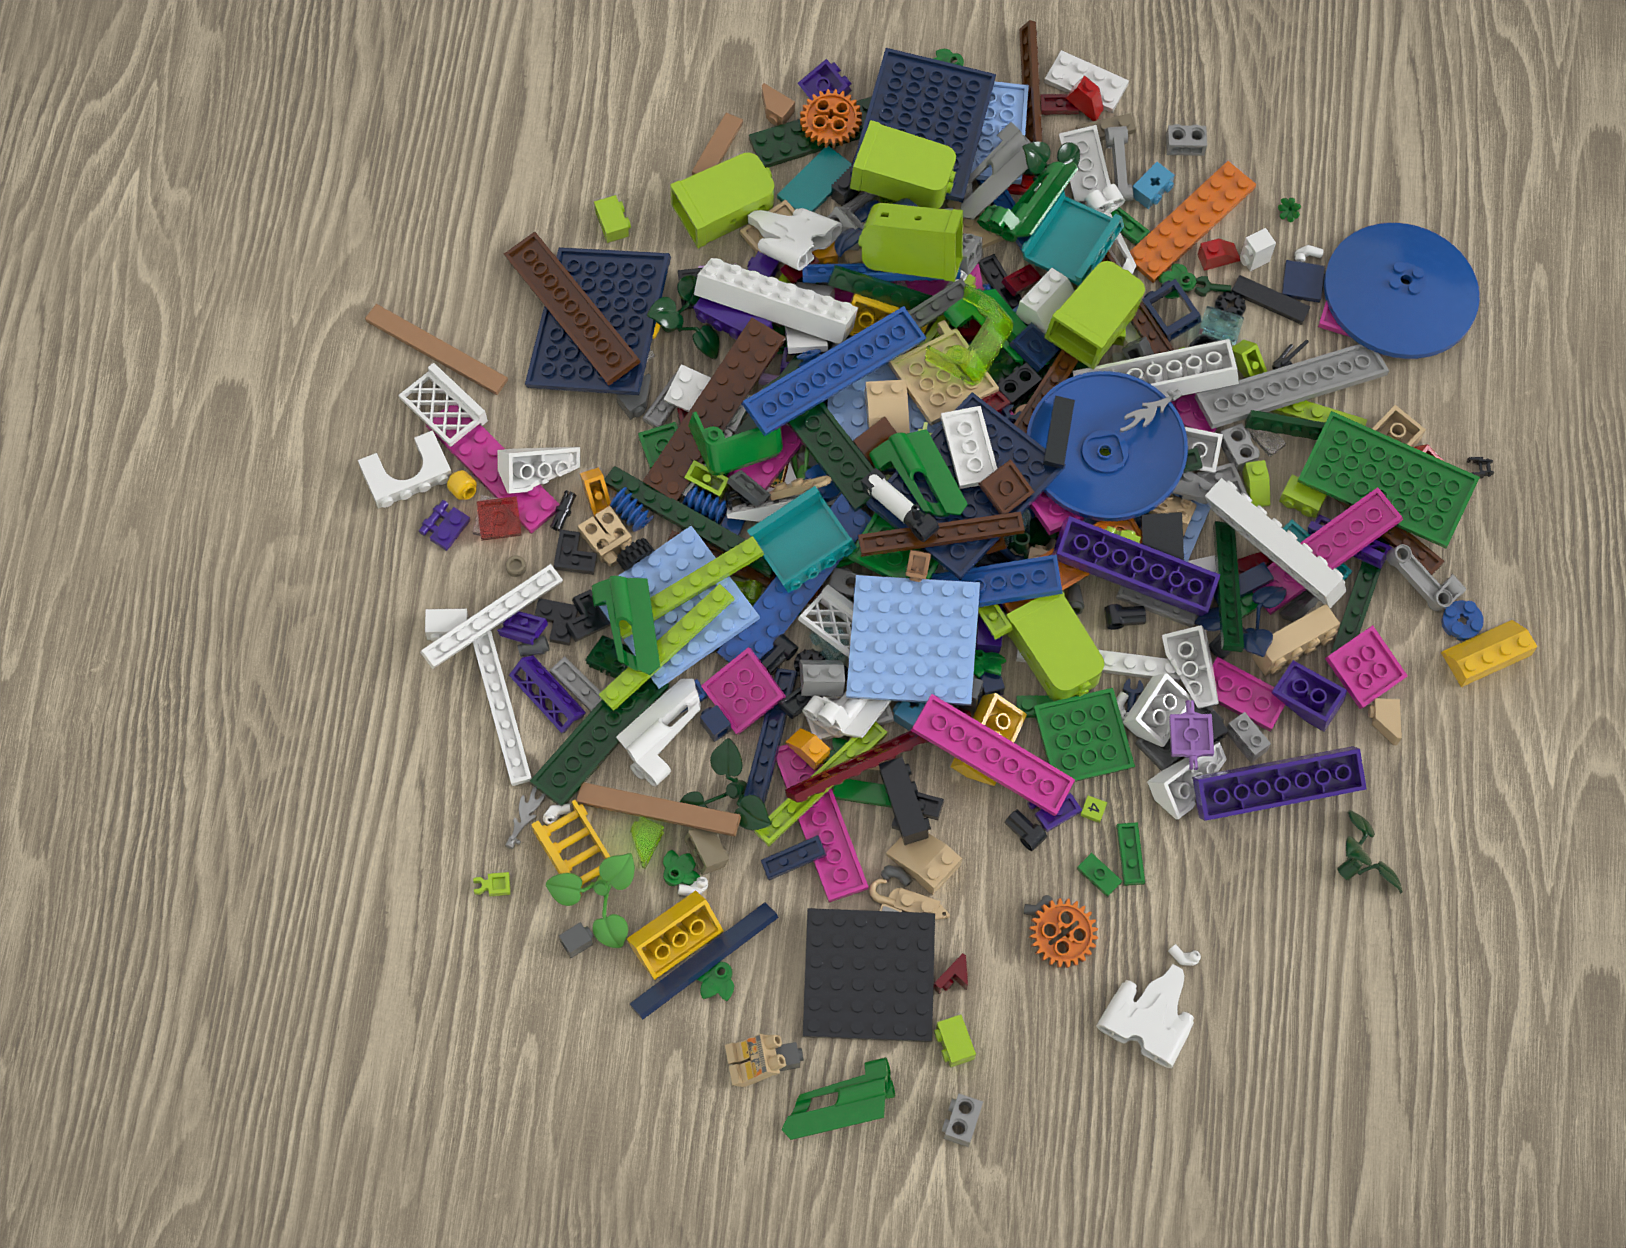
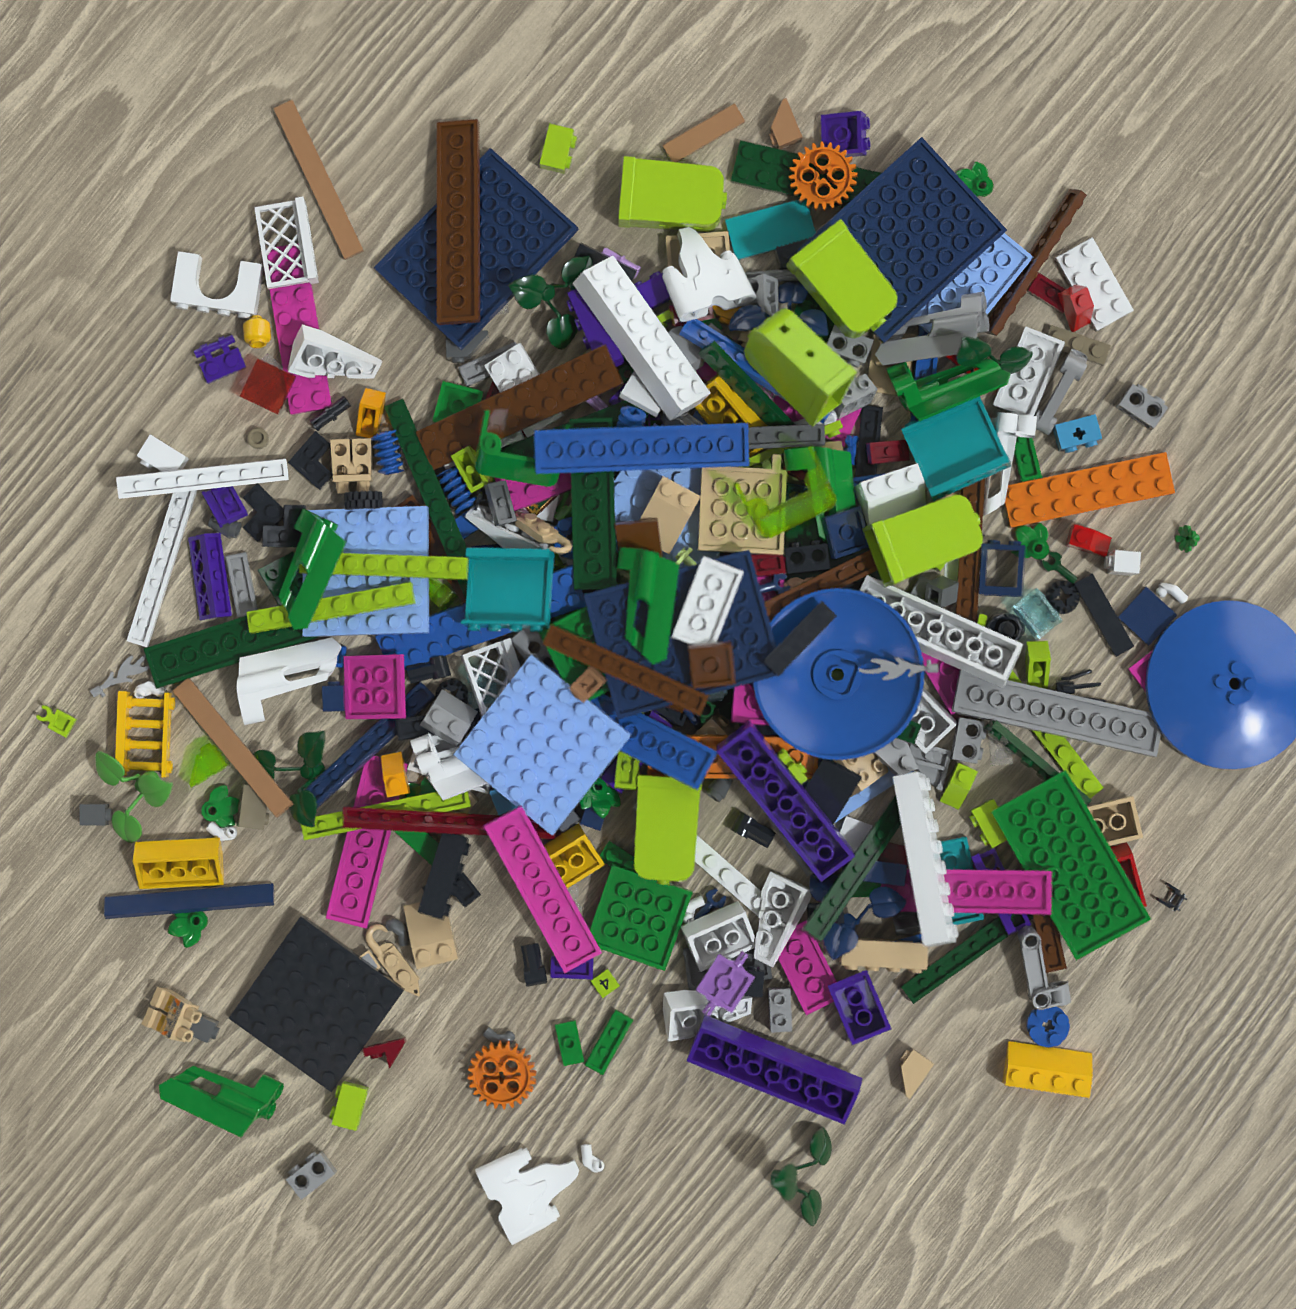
camera: 35 degrees right, 20 degrees up
(793, 857) = (321, 861): dark blue tile -> none
(877, 487) = (604, 622): piece -> none
(1366, 667) = (927, 1015): dark pink plate -> none

